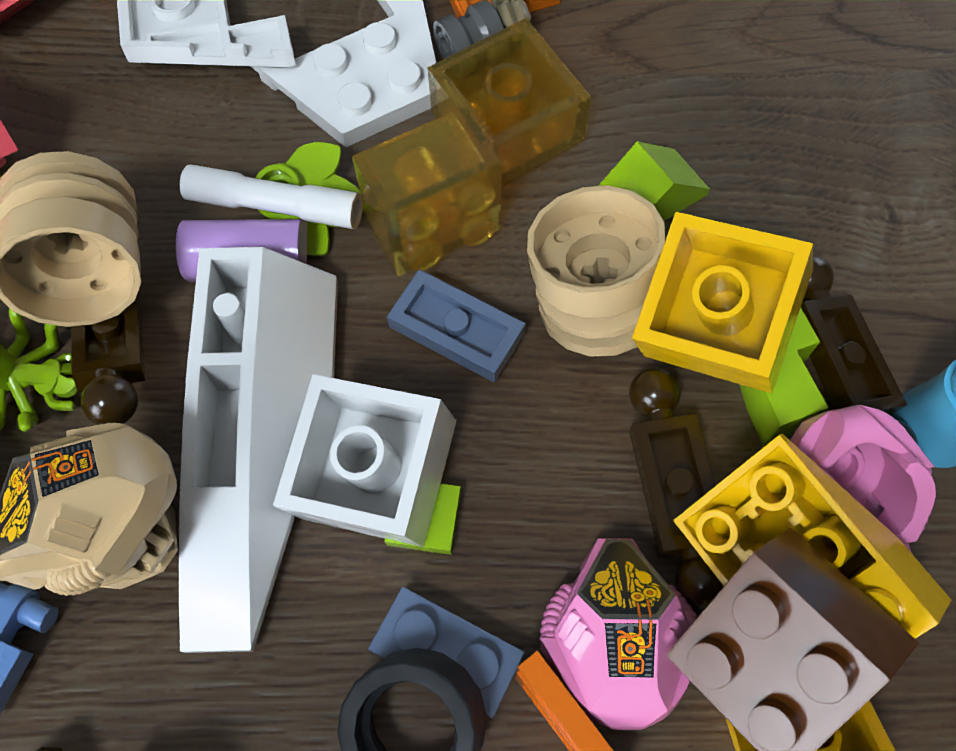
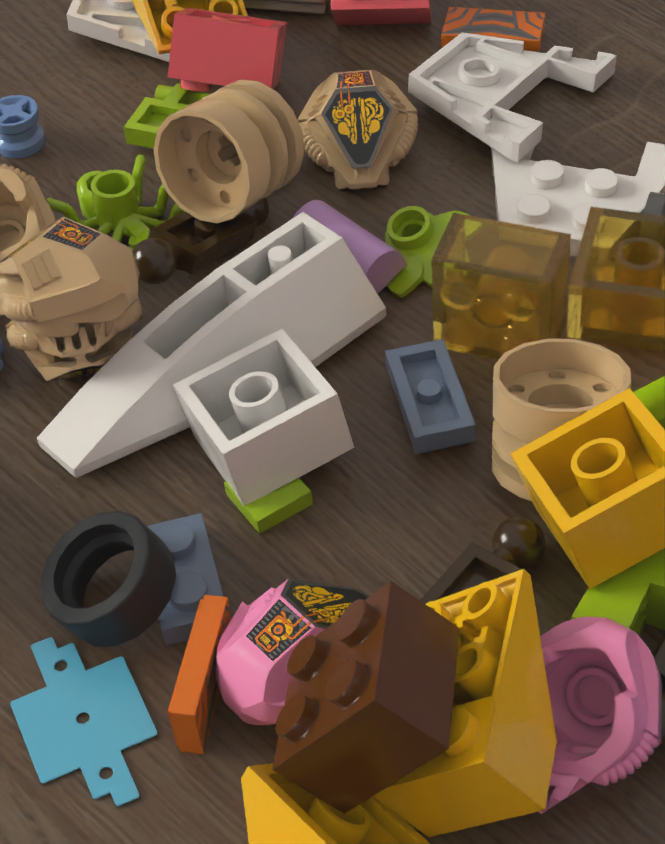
camera: 50 degrees right, 20 degrees down
(129, 122) = (358, 127): none -> helmet
(307, 202) = (376, 204): white piece -> none

